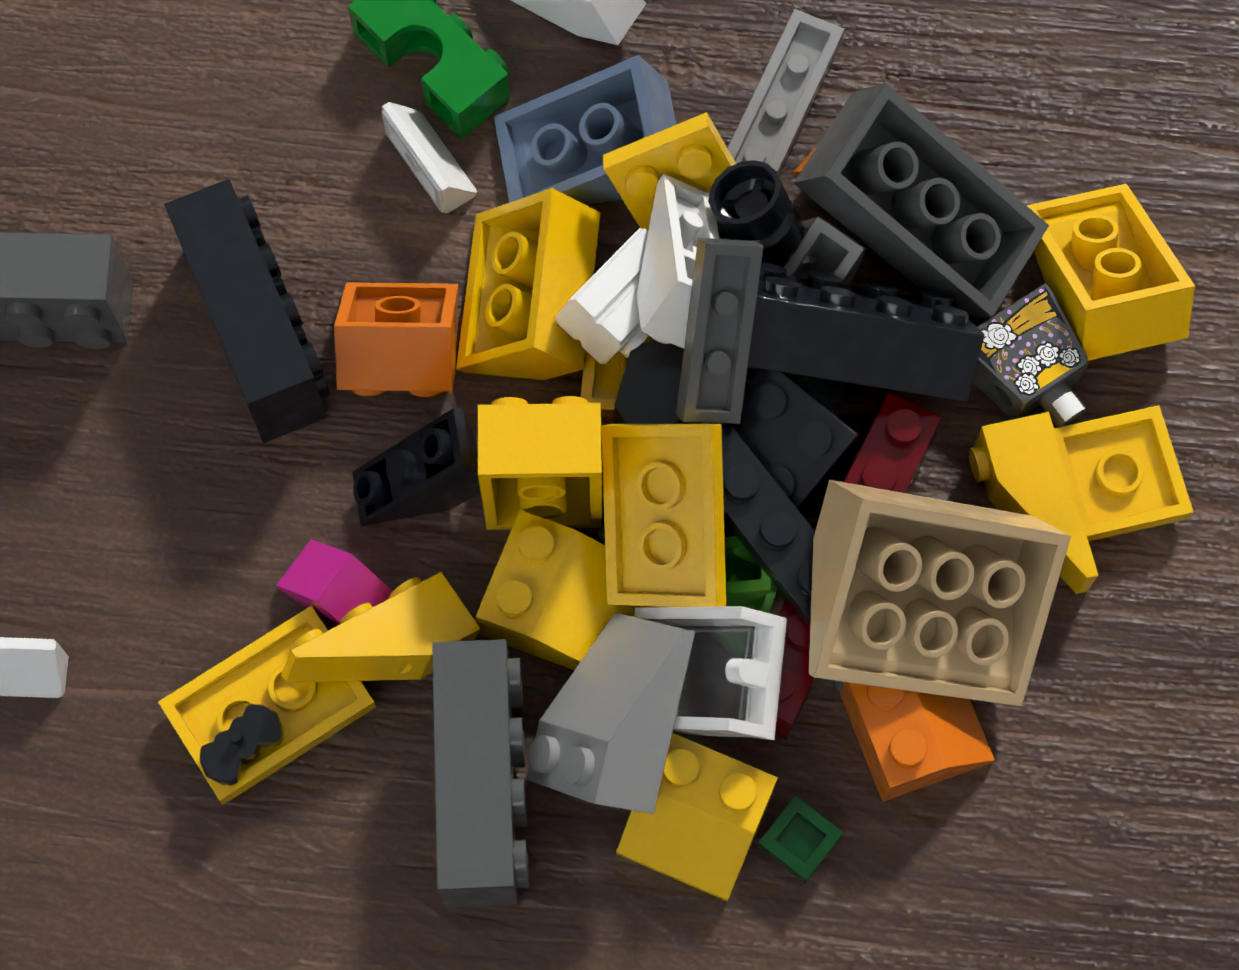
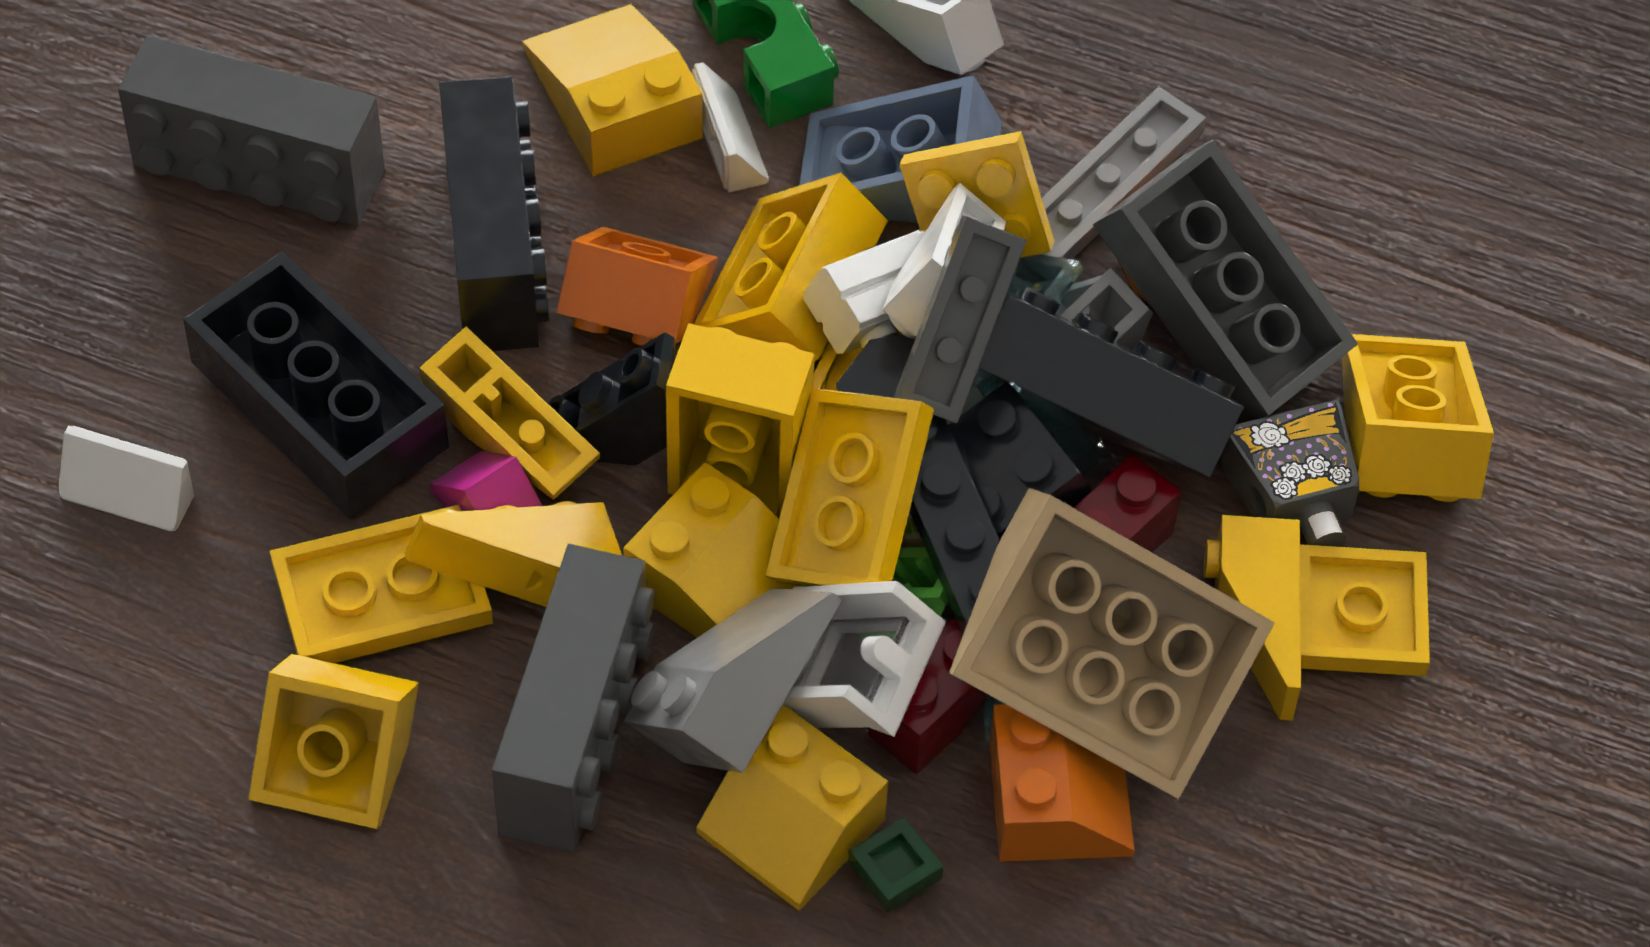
camera: 15 degrees right, 15 degrees down
(145, 524) = (317, 383): none -> black brick
(241, 744) = (340, 608): black piece -> none
(273, 869) = (332, 740): none -> yellow slope
(314, 138) = (618, 88): none -> yellow slope
(329, 510) = (505, 413): none -> yellow slope
(756, 207) = (1054, 255): black wheel -> none

